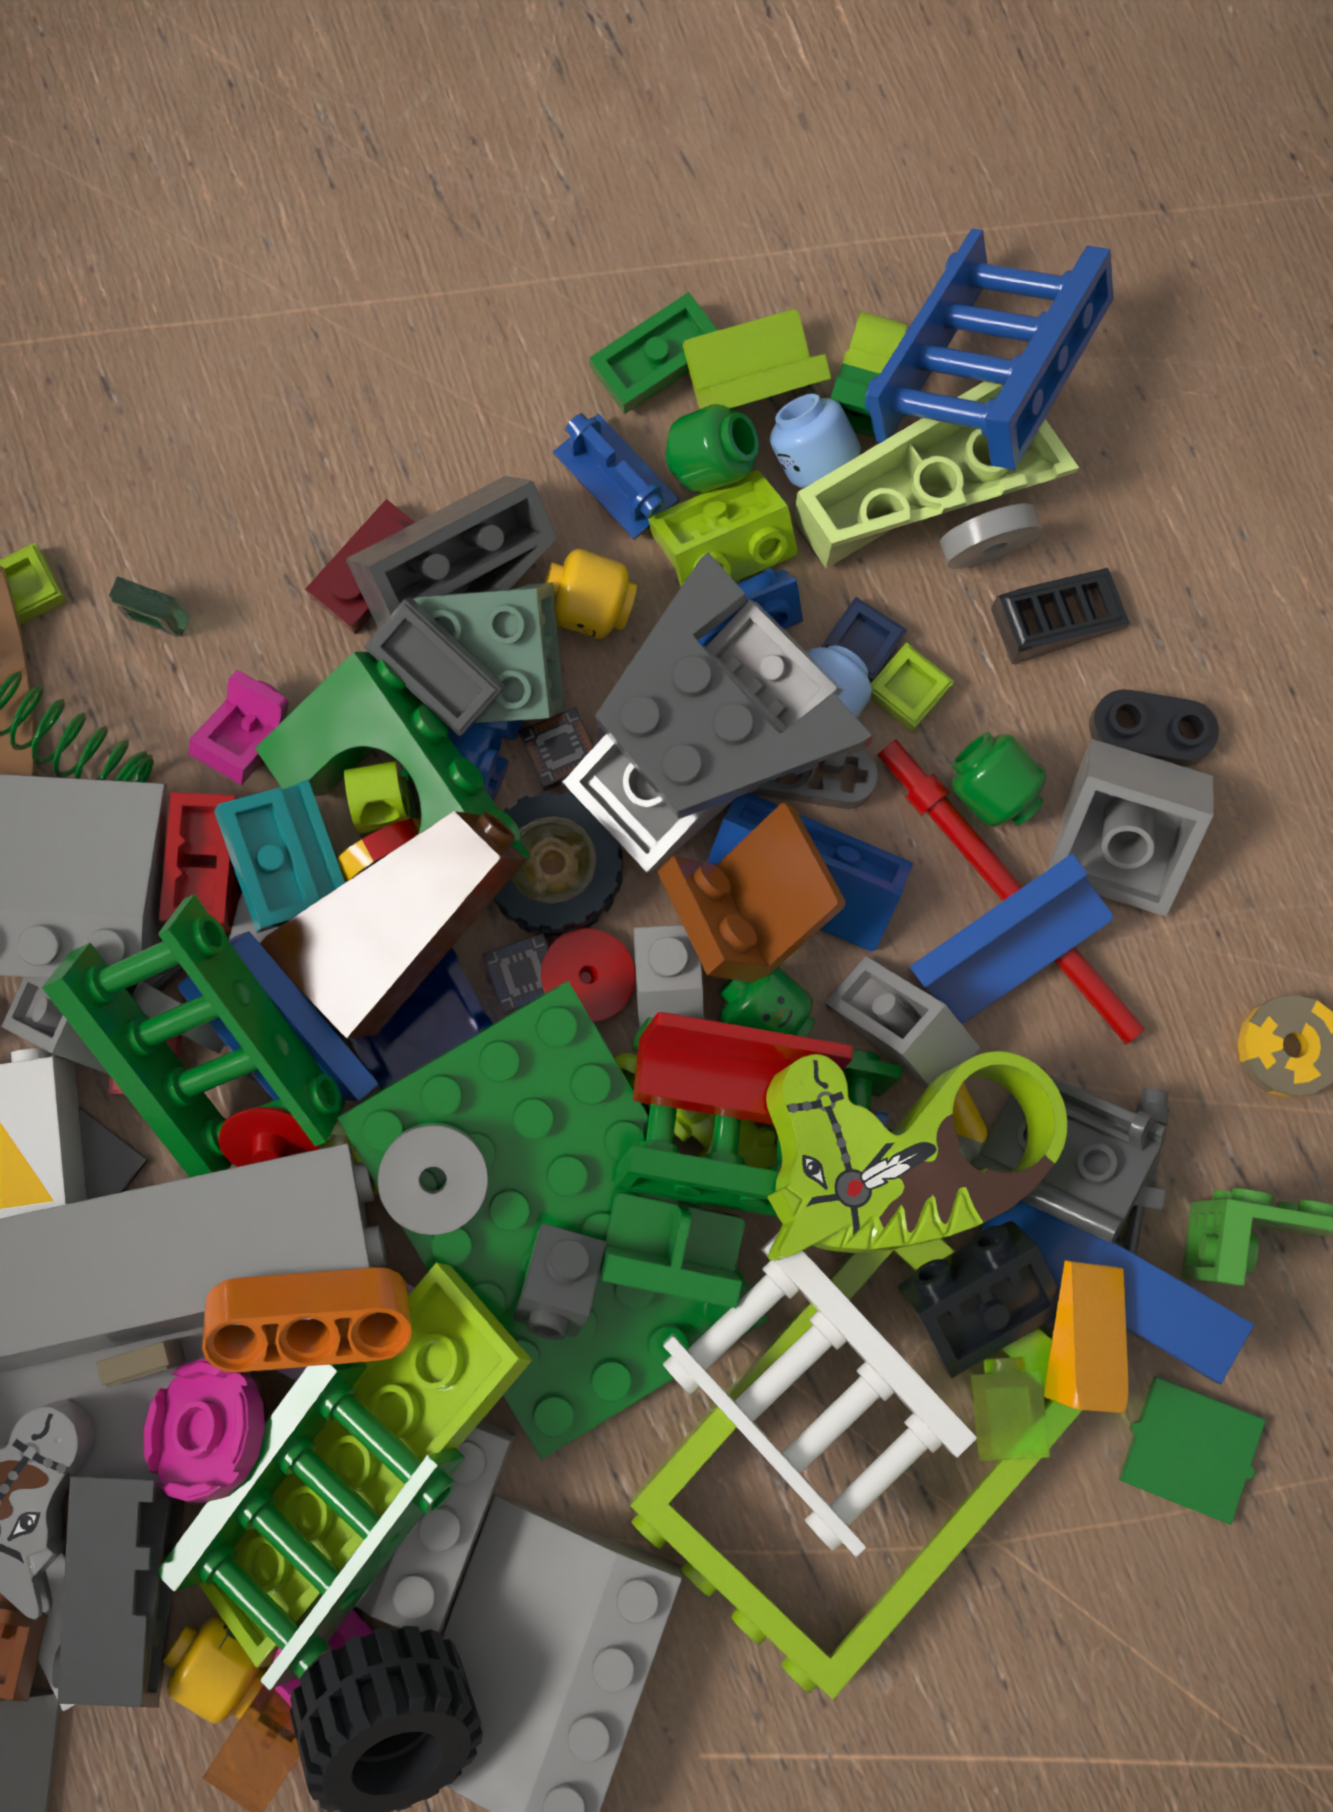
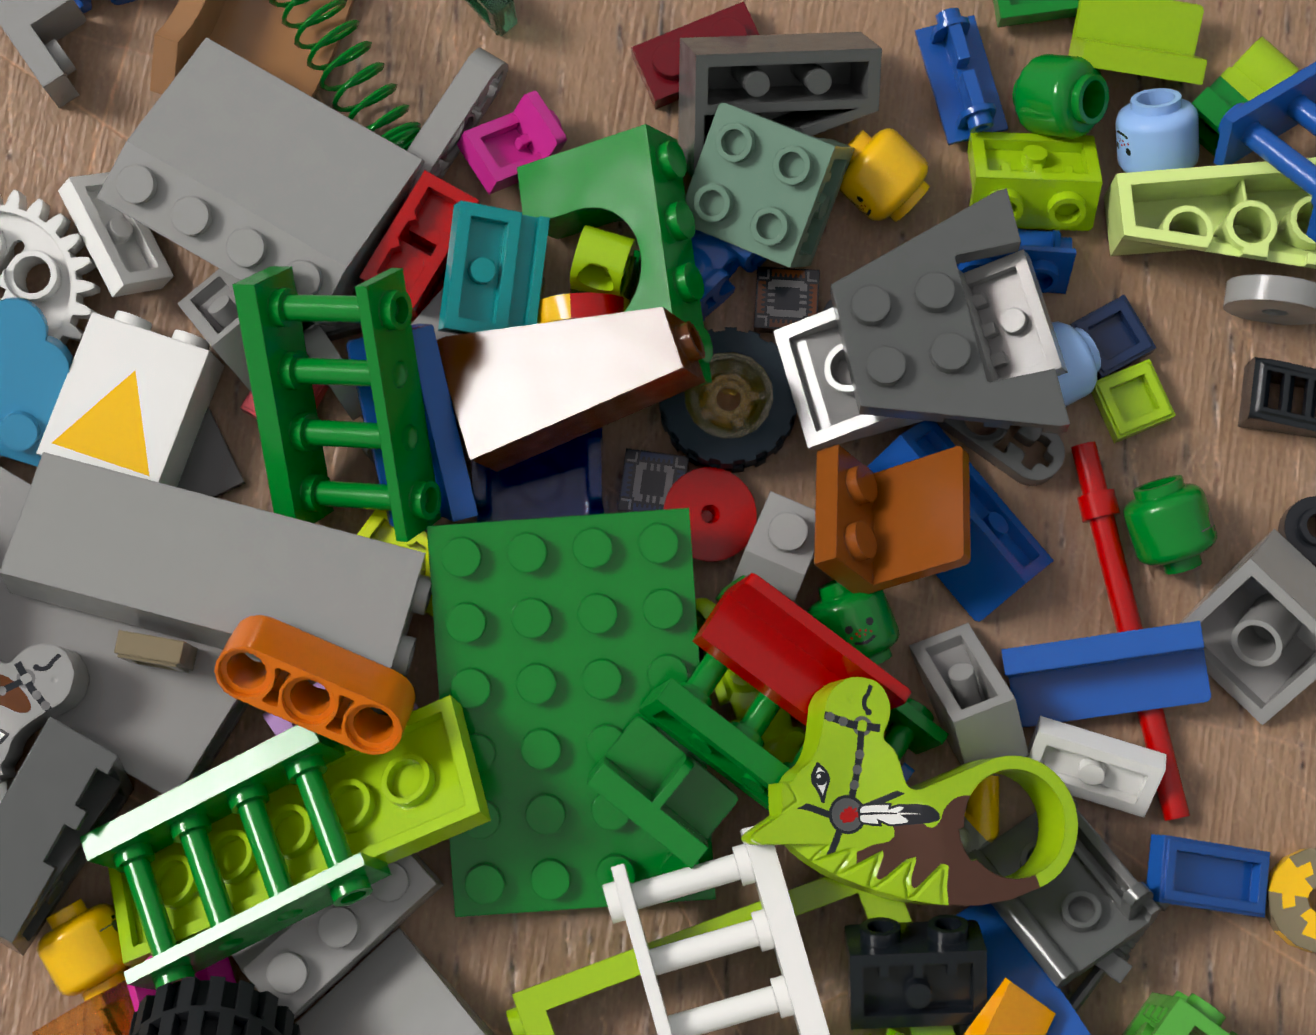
camera: 30 degrees right, 0 degrees up
(174, 723) = (458, 111): none -> light grey beam
(204, 1432) = (180, 737): dark pink tile -> none
(262, 1136) = (355, 508): red piece -> none
(426, 1209) = (470, 648): light grey piece -> none
(435, 666) = (711, 172): dark grey tile -> none
(559, 1283) = (547, 768): dark grey bracket -> none
(1044, 1025) = (1099, 765): none -> white plate
(1189, 1074) = (1208, 875): none -> blue tile

